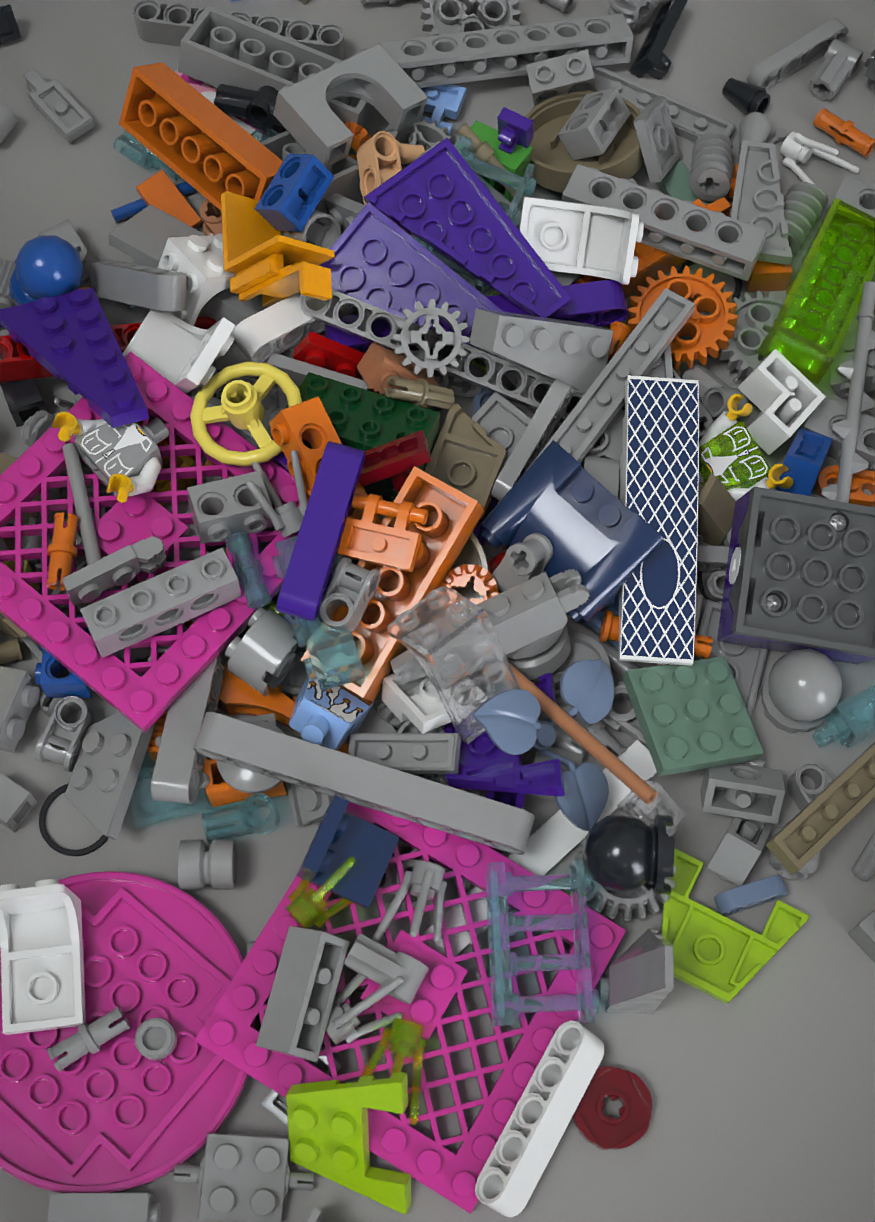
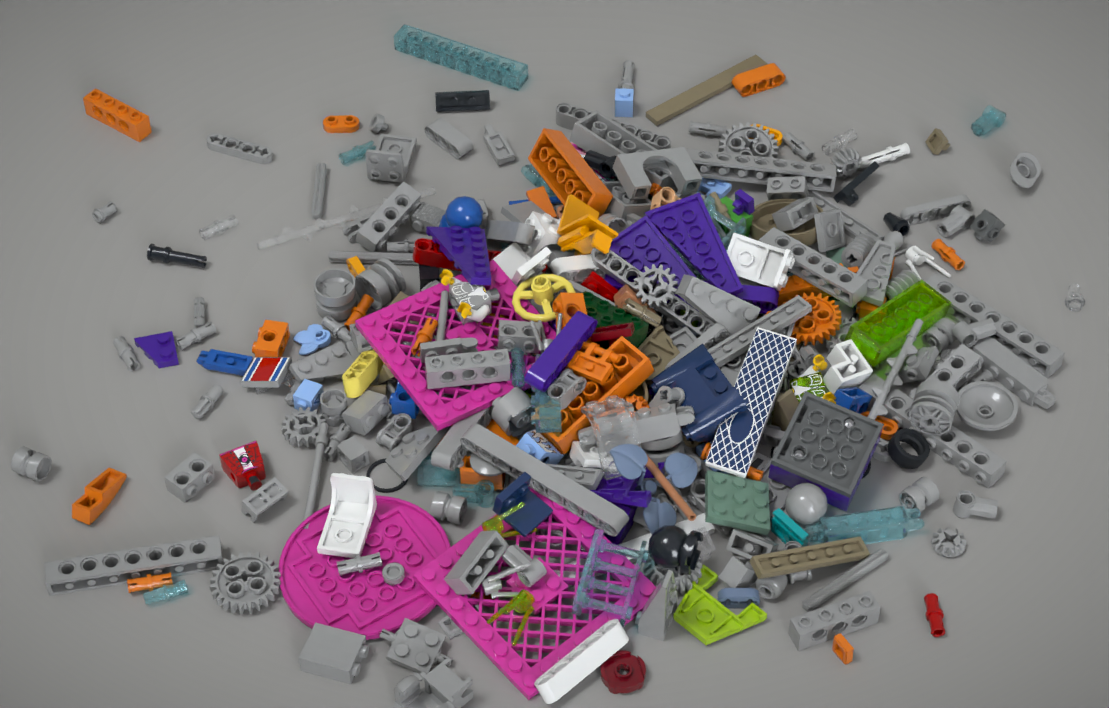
camera: 20 degrees right, 20 degrees down
(294, 192) = (609, 203): blue brick -> none
(332, 1134) = (469, 635): lime wing -> none
(425, 882) = (558, 534): light grey plant -> none
(790, 741) = (787, 529): none -> teal plate

